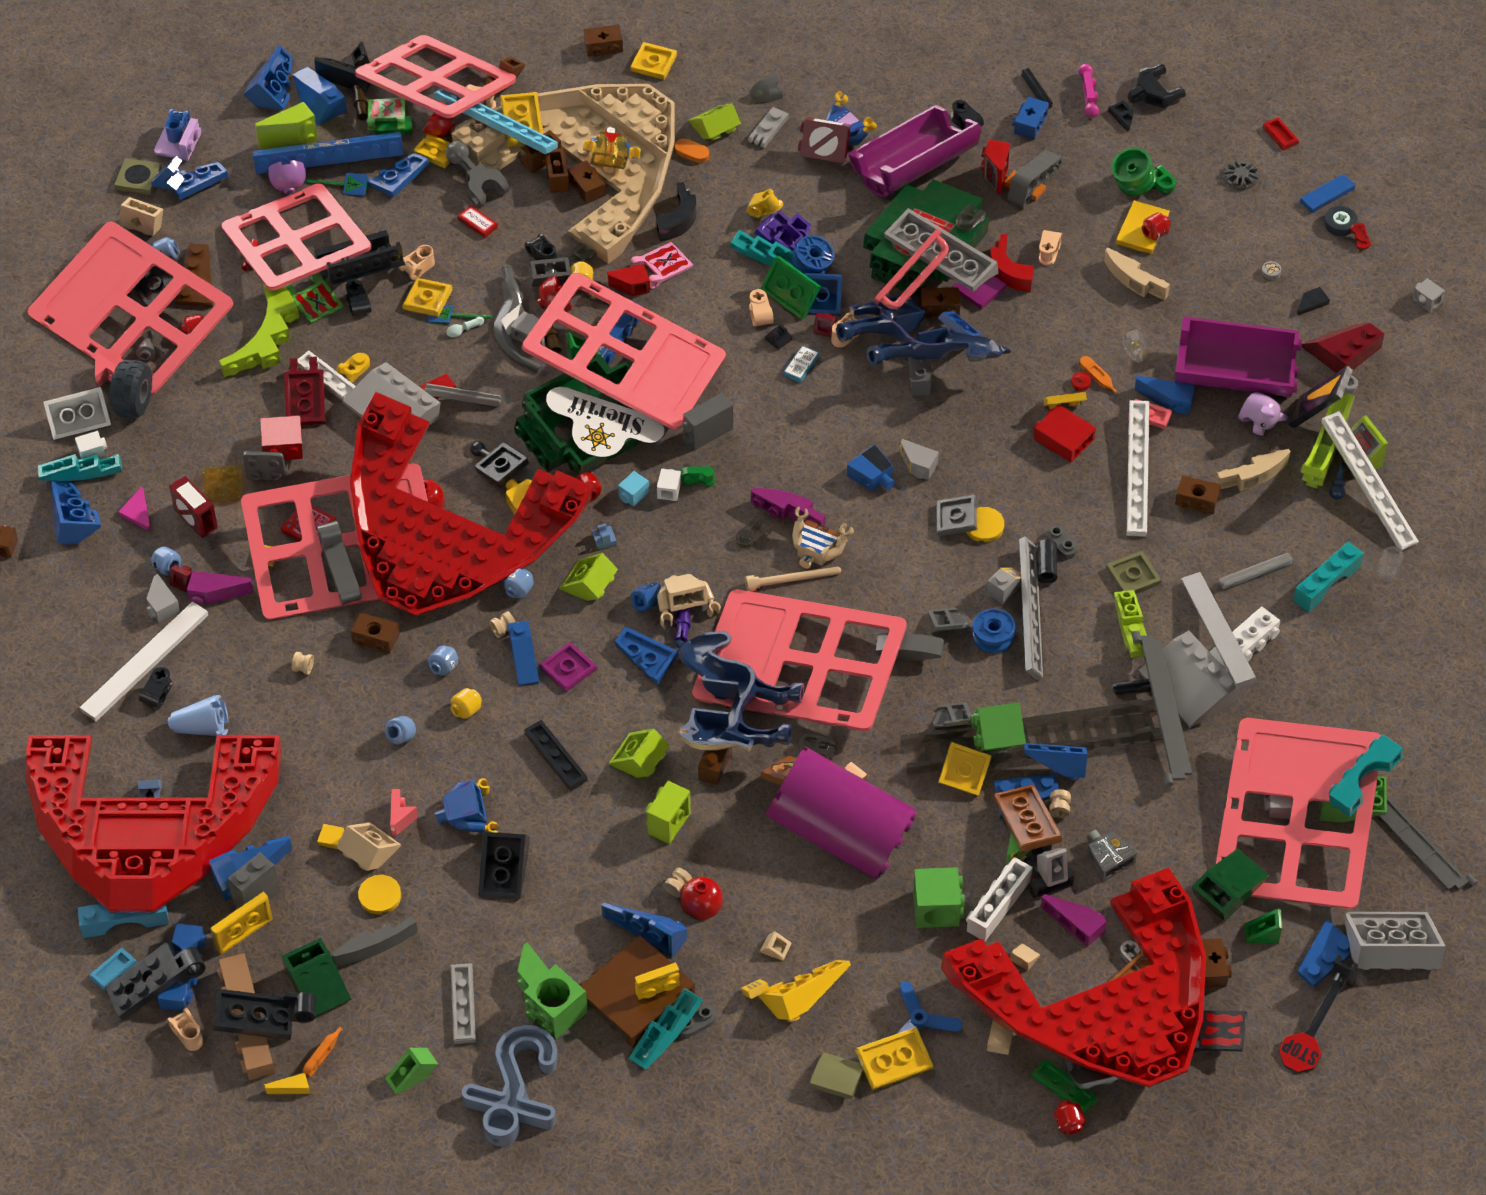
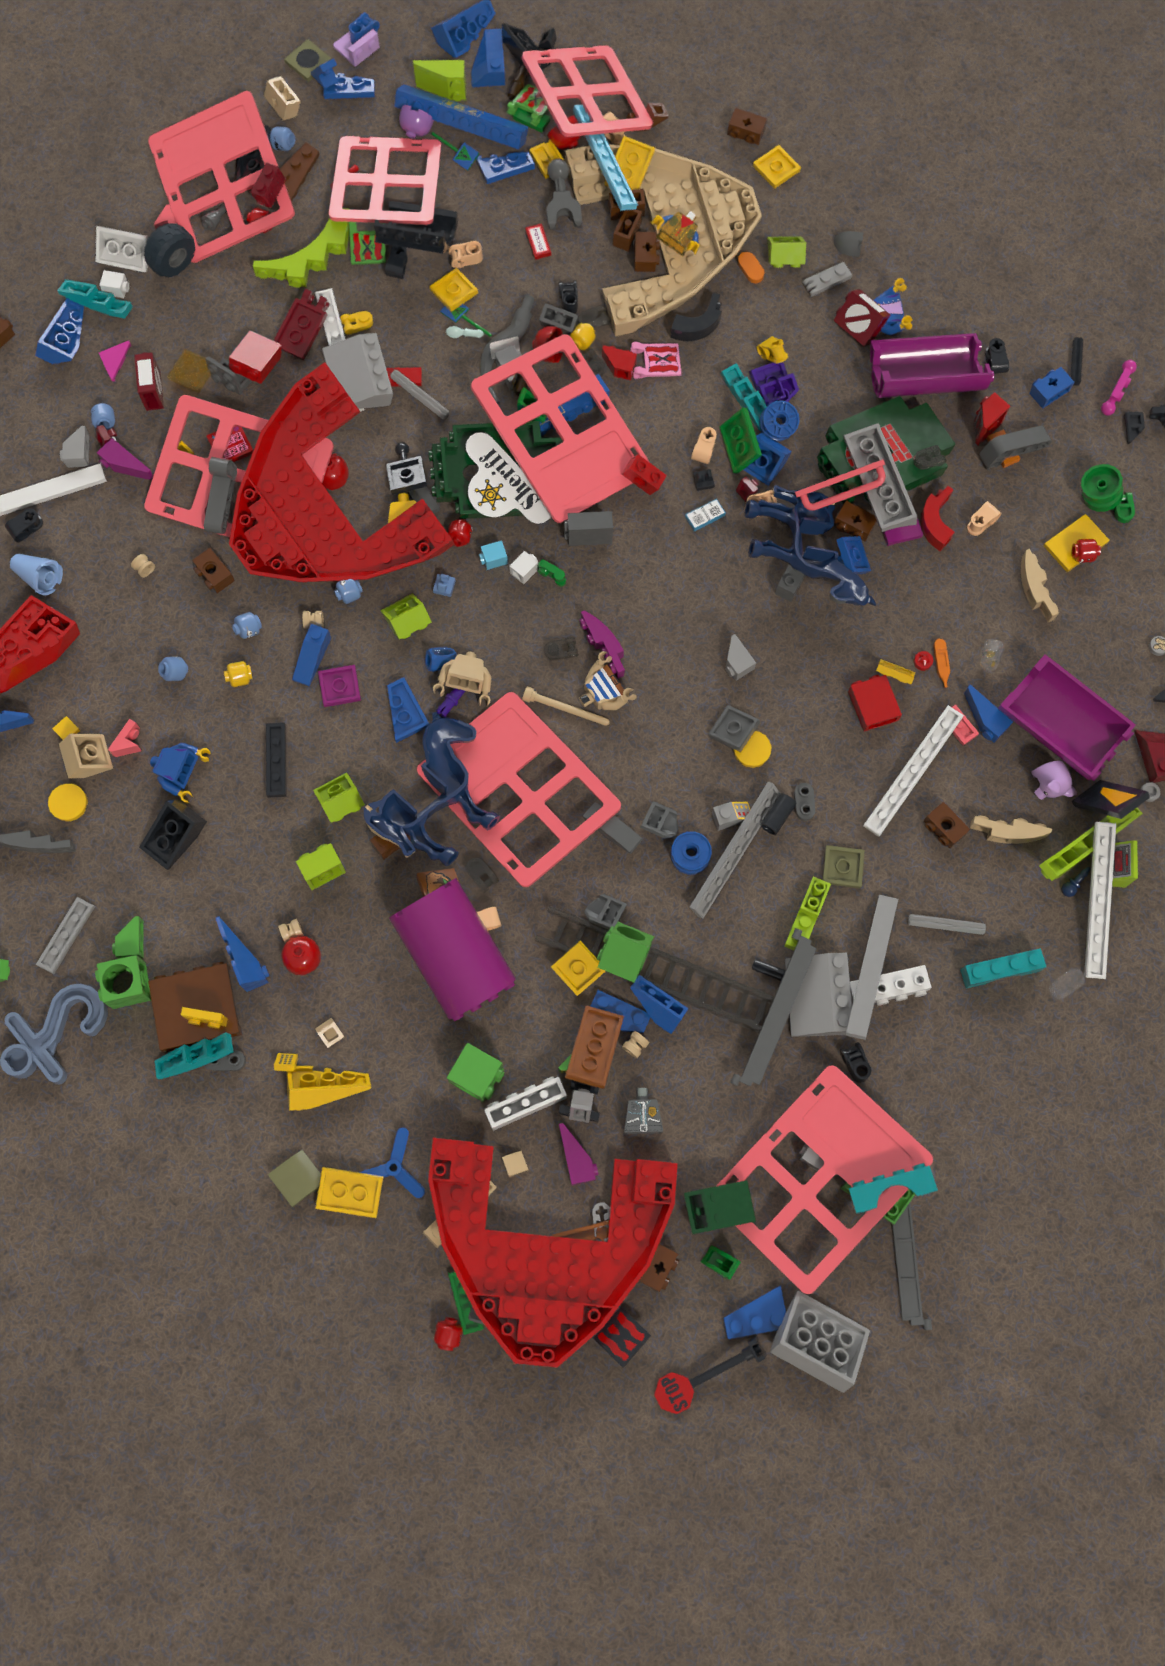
camera: 30 degrees right, 20 degrees up
(193, 287) = (268, 185): none -> dark red brick
(724, 356) = (644, 474): none -> red brick
(871, 469) = (694, 646): blue torso -> none
(1259, 710) = (855, 1061): none -> black piece

